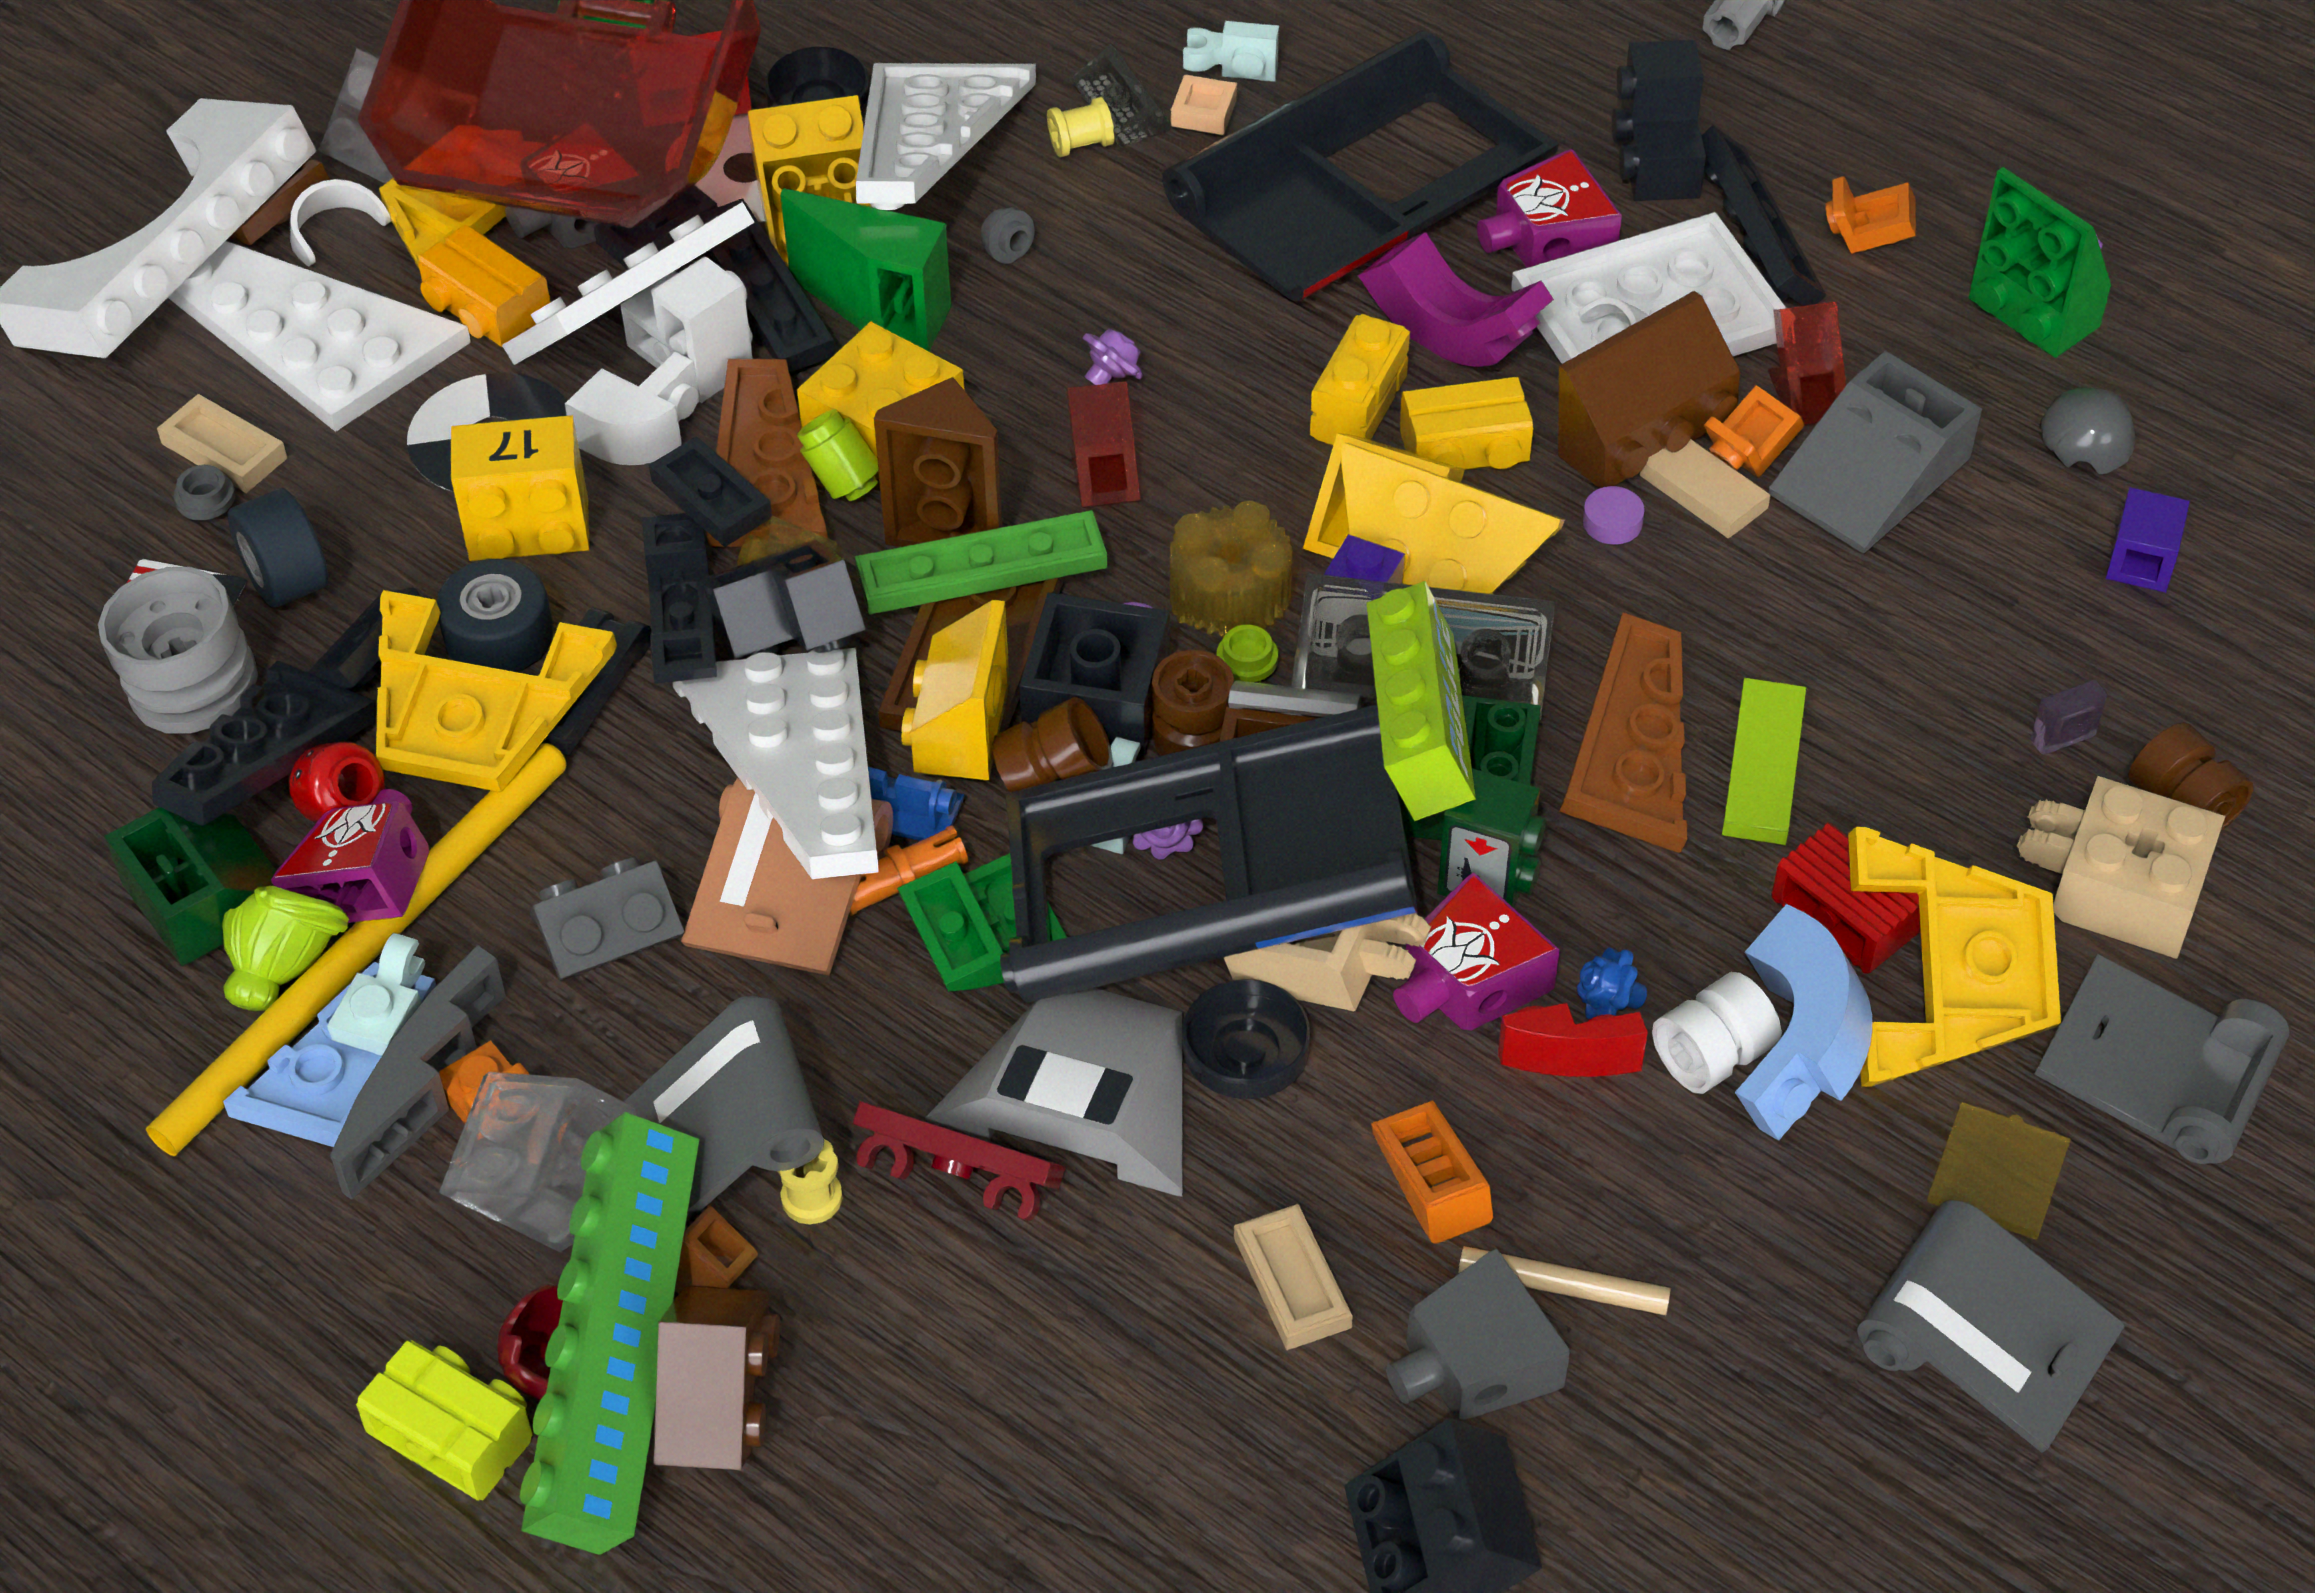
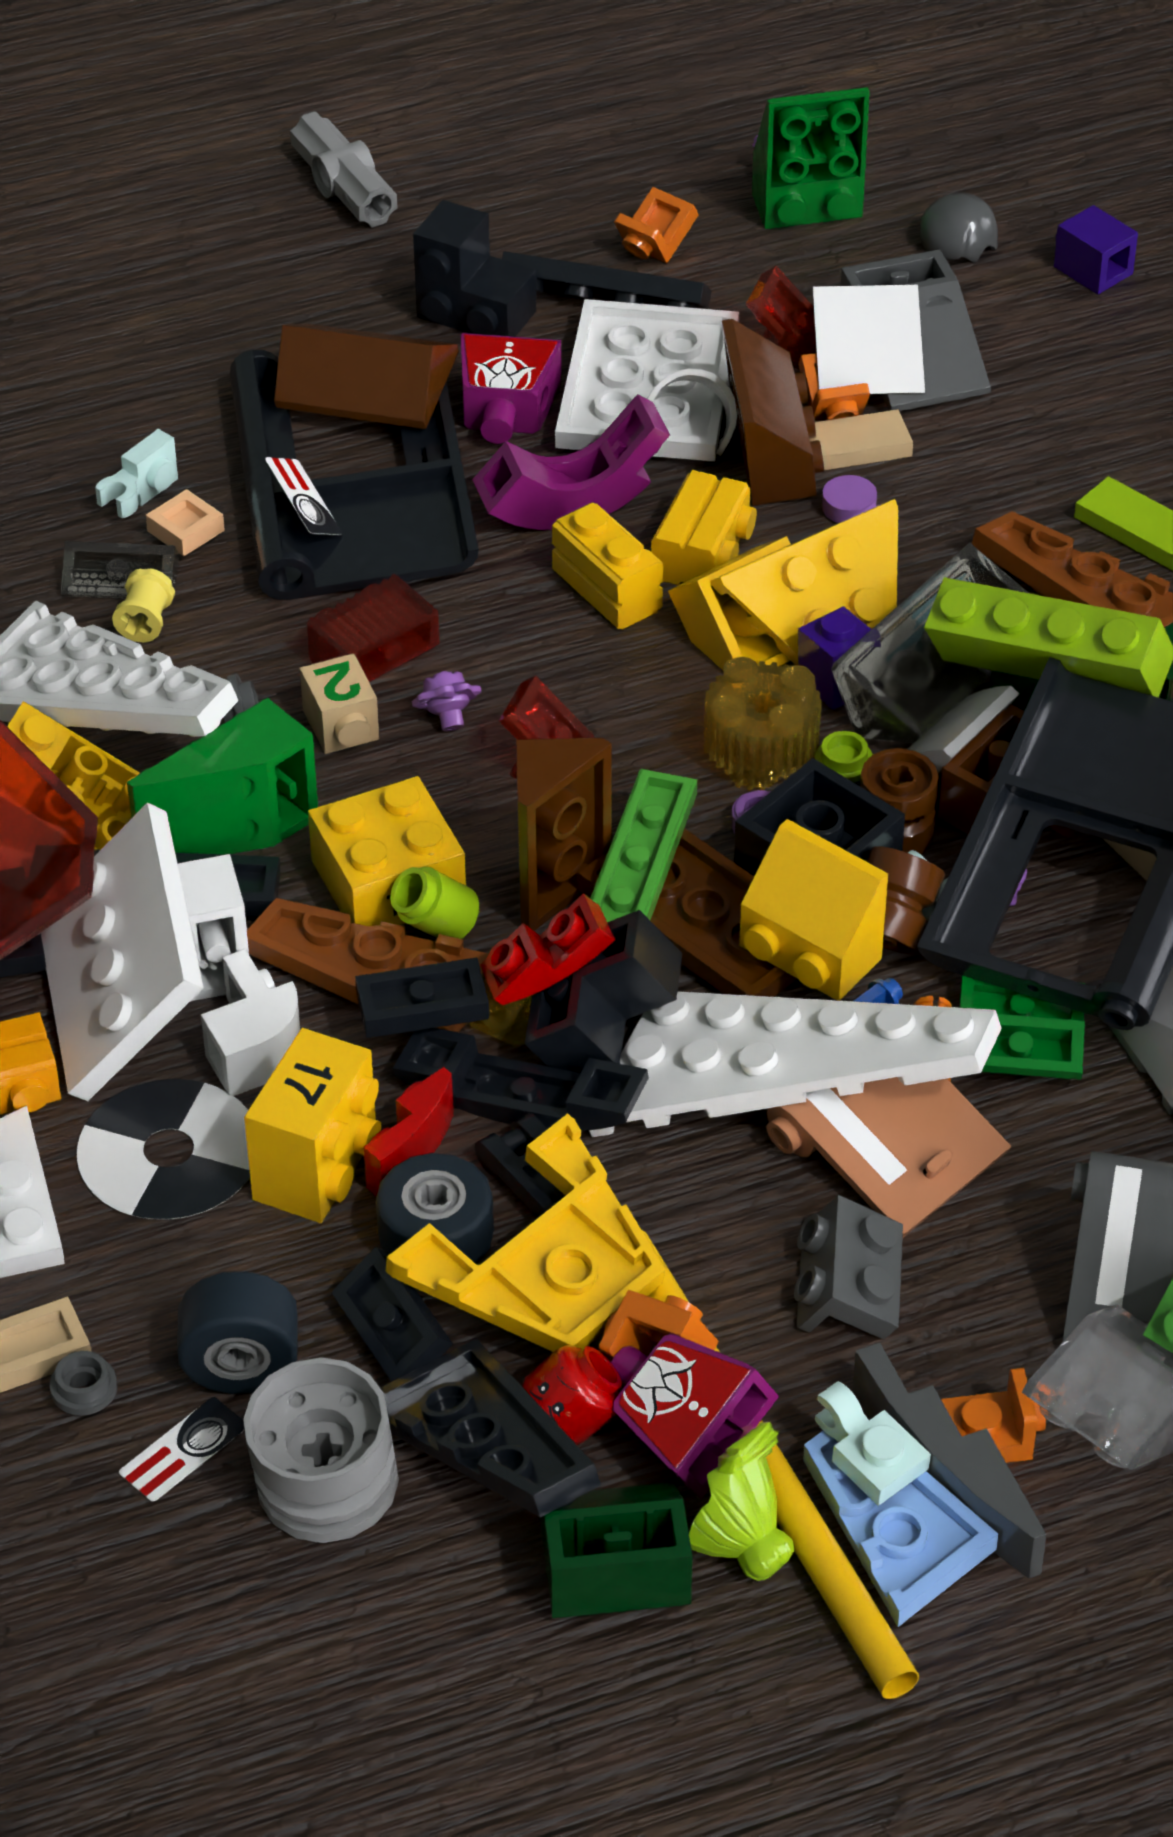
camera: 60 degrees left, 5 degrees down
(428, 804) = (645, 1320): none -> orange bracket
(591, 565) = (422, 1122): none -> red slope
(787, 533) = (534, 962): none -> red slope
(1050, 294) = (339, 703): none -> tan brick
(1155, 275) = (379, 625): none -> clear red brick
(1282, 153) = (303, 496): none -> sticker
(1468, 110) = (361, 374): none -> reddish brown slope
(1816, 419) = (869, 337): none -> white sticker

